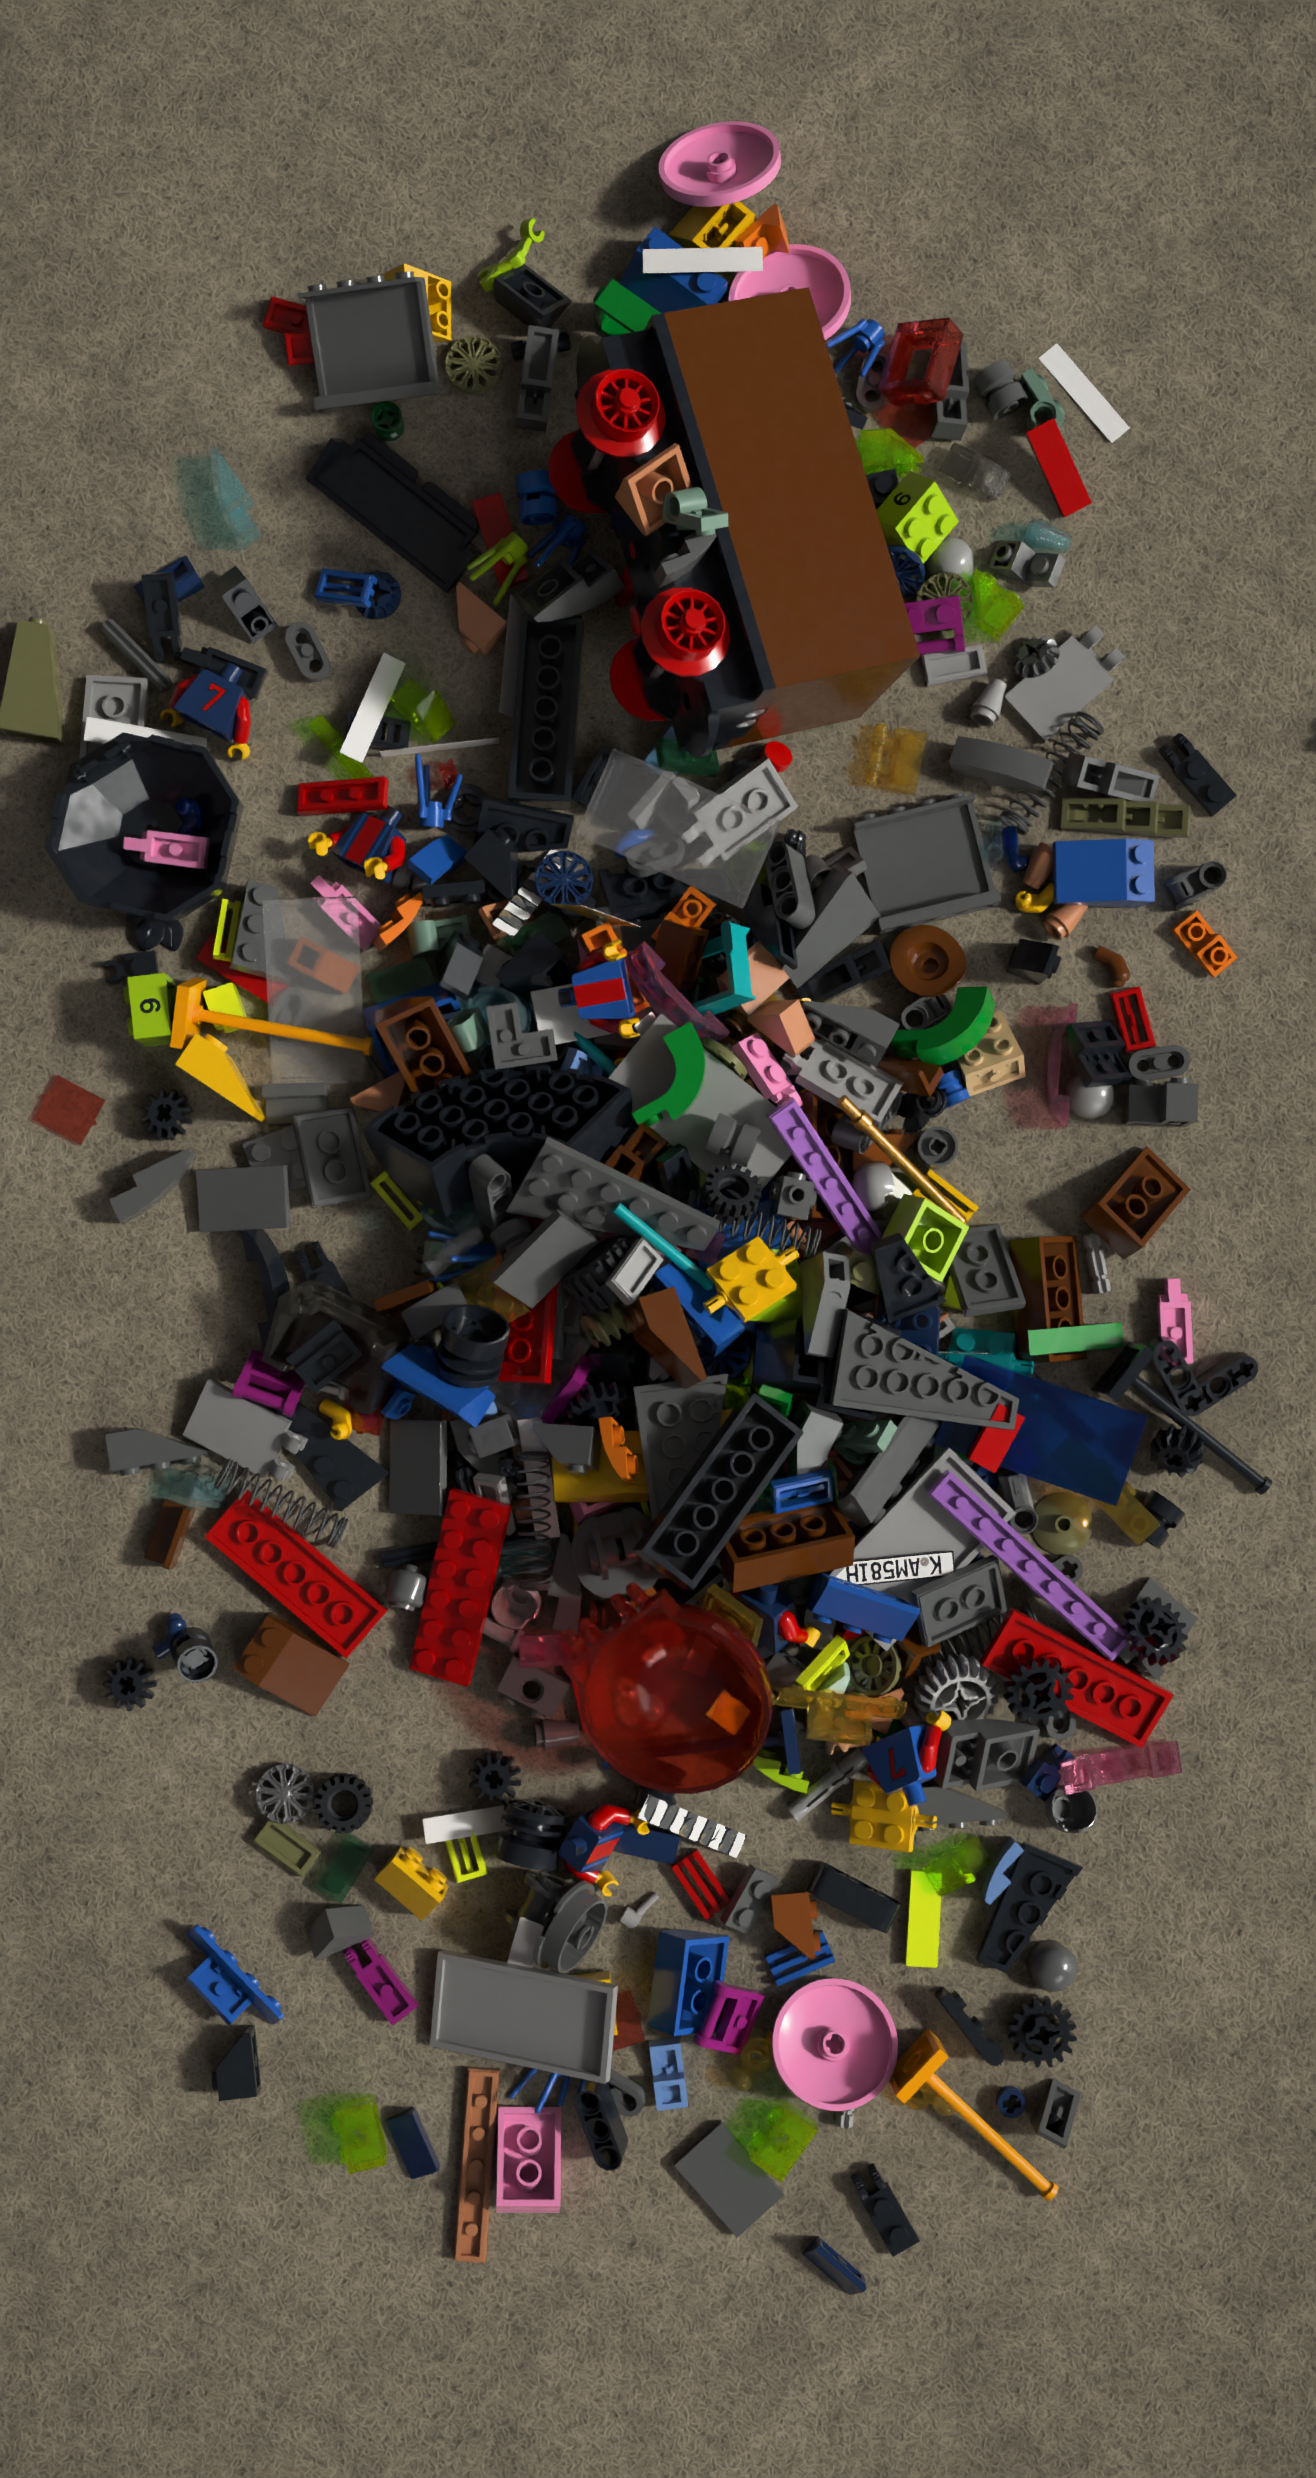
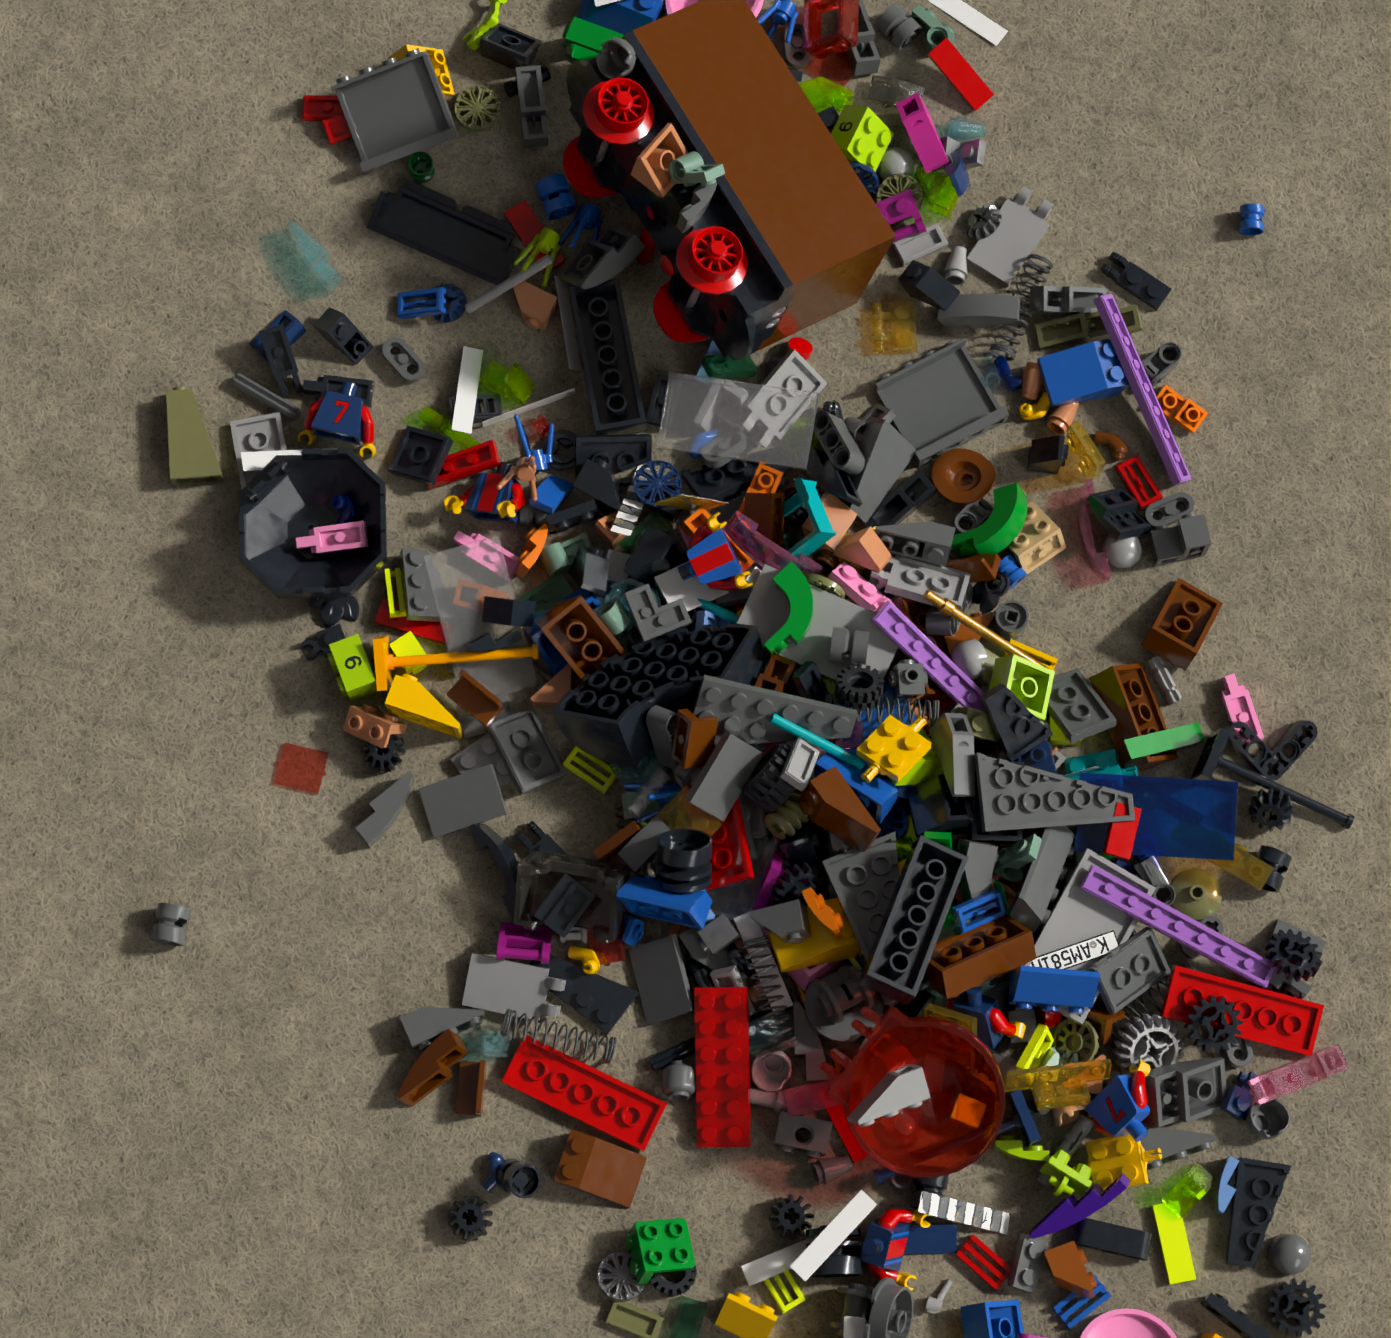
camera: 15 degrees left, 10 degrees down
(129, 1500) = (432, 1068): none -> reddish brown slope
(161, 1082) = (373, 725): none -> nougat bracket
(284, 1085) = (475, 699): none -> reddish brown panel
(298, 773) = (420, 455): none -> black tile
(312, 1022) = (486, 642): none -> black slope
(335, 1776) = (659, 1248): none -> green bracket
(349, 991) = (508, 611): none -> black slope
(412, 826) = (525, 471): none -> nougat plant
(452, 591) = (509, 283): none -> light grey bar
(517, 1208) = (693, 739): none -> reddish brown panel
(531, 1822) = (833, 1235): none -> white sticker
(635, 344) = (616, 58): none -> dark grey hair
(641, 1689) = (895, 1091): none -> light grey slope
(816, 1820) = (1064, 1177): none -> lime hips
(816, 1859) = (1072, 1210): none -> dark purple slope
(948, 719) = (928, 286): none -> black slope
(993, 528) = (922, 132): none -> dark pink slope
(1021, 590) = (958, 173): none -> dark blue slope
(1076, 959) = (1080, 444): none -> clear yellow plate
(1167, 910) = (1142, 389): none -> medium lavender tile

